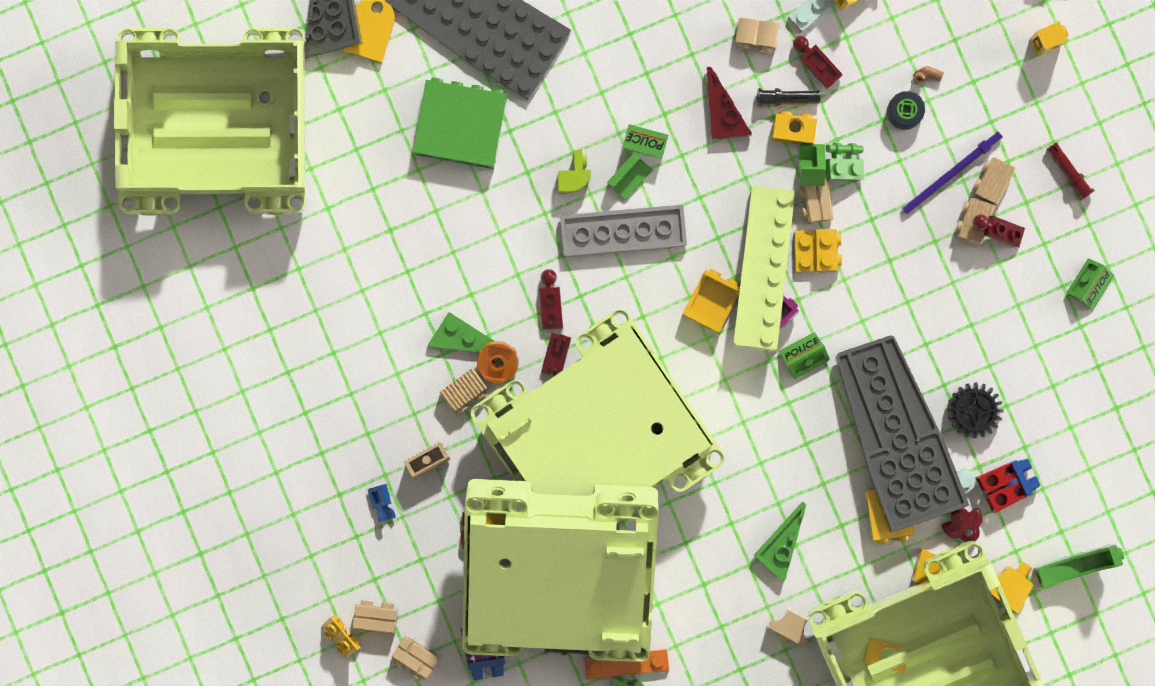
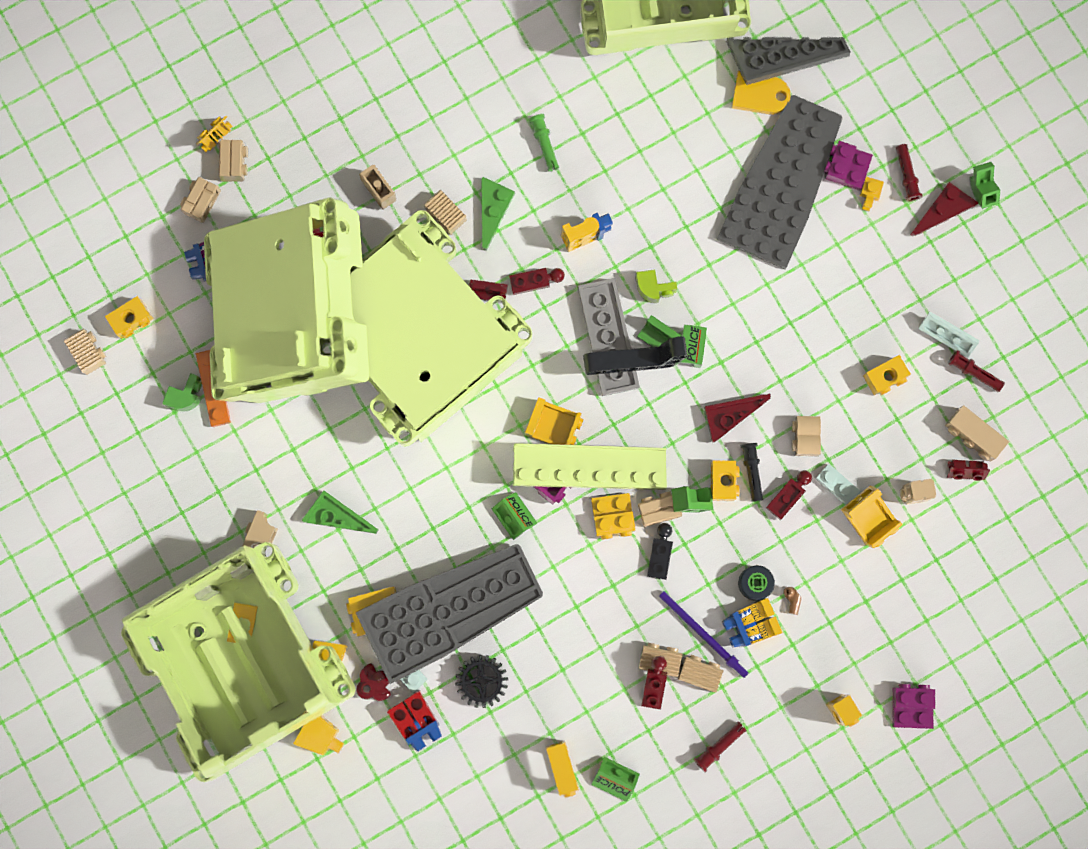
camera: 80 degrees right, 5 degrees down
(381, 499) = (338, 152): blue plate -> none
(387, 274) = (542, 134): none -> bright green pin
(460, 123) = (686, 179): bright green panel -> none
(501, 350) = (484, 241): orange plate -> none
(505, 236) = (586, 232): none -> yellow hips
(655, 204) = (627, 360): none -> black beam
(844, 169) = (692, 530): bright green plate -> none
(862, 206) = (660, 553): none -> black plate
(948, 120) = (746, 627): none -> hips
(1075, 336) = (562, 769): none -> yellow window
(1079, 564) = (345, 797): bright green arch -> none

